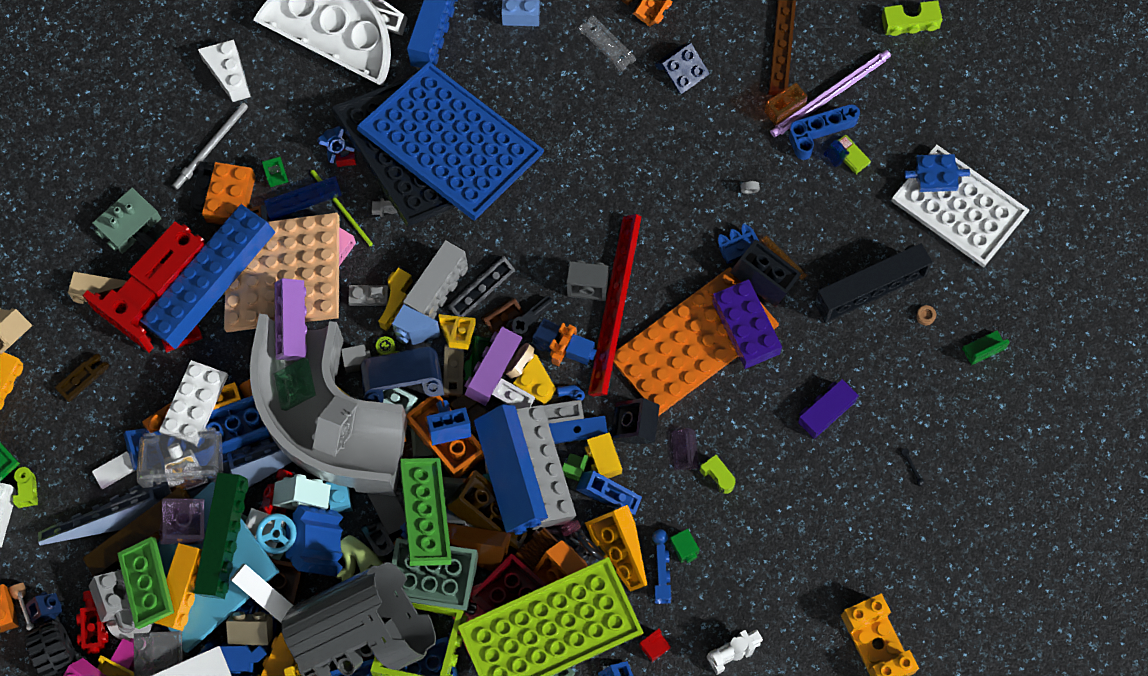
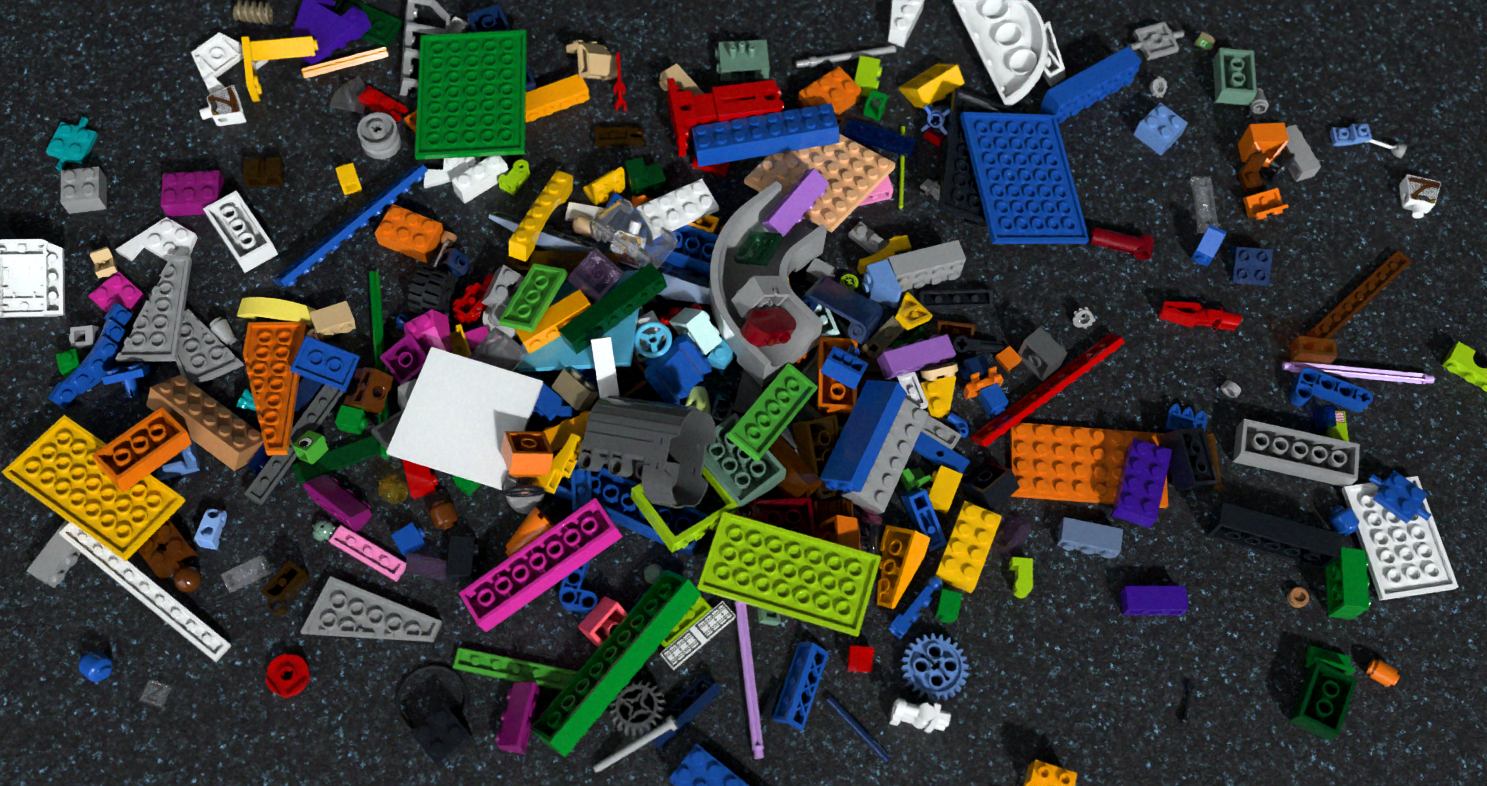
camera: 35 degrees right, 5 degrees down
(45, 334) = (619, 86): none -> red flag
(86, 524) = (527, 233): none -> yellow arch
(110, 432) = (603, 187): none -> yellow bracket
(126, 481) = (581, 226): none -> tan brick
(139, 398) = (644, 179): none -> dark green brick
(244, 150) = (867, 73): none -> lime brick
(305, 114) = (932, 84): none -> yellow slope
(363, 446) = (768, 327): none -> dark red brick
(563, 304) = (1008, 358): none -> orange tile
(586, 122) = (1139, 246): none -> dark red piece
(594, 223) = (1083, 321): none -> light grey animal
(639, 79) = (1208, 245): none -> slope
(660, 486) = (968, 546): none -> yellow brick
(678, 145) = (1193, 314): none -> red arm
(714, 621) = (922, 680): none -> medium blue gear
(743, 400) = (1089, 537): none -> sand blue brick
(837, 201) = (1296, 453): none -> light grey brick
(912, 226) = (1343, 520): none -> blue head
(953, 276) = (1348, 584): none -> green brick
(1004, 382) = (1323, 700): none -> dark green brick
(1027, 323) = (1382, 672): none -> orange brick

